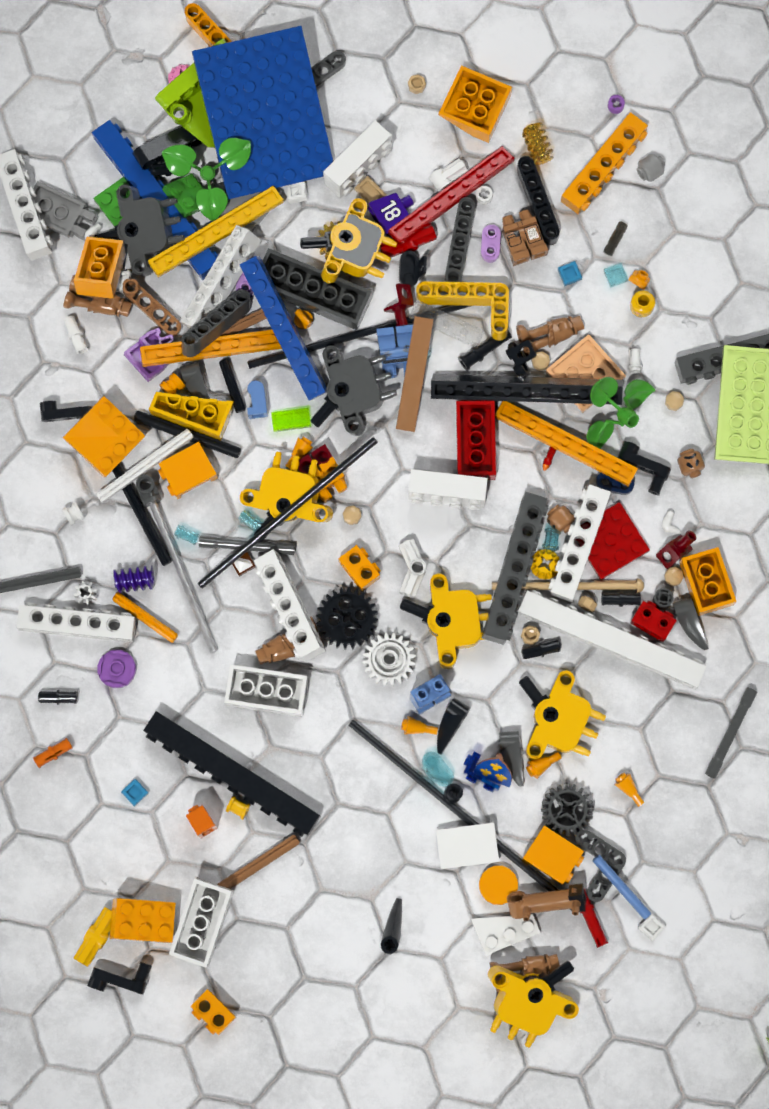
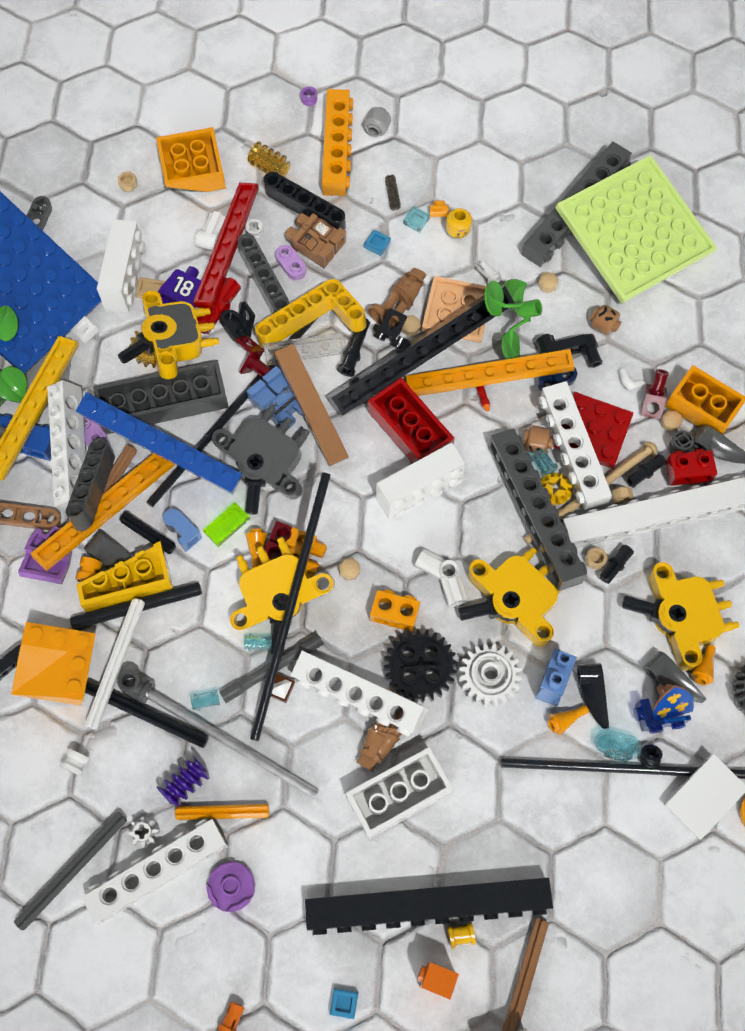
camera: 40 degrees left, 10 degrees down
(57, 697) = (190, 964): black axle -> none
(186, 470) = (160, 638): light orange panel -> none
(303, 319) = (172, 429): light orange plate -> none
(393, 927) = (706, 940): black piece -> none

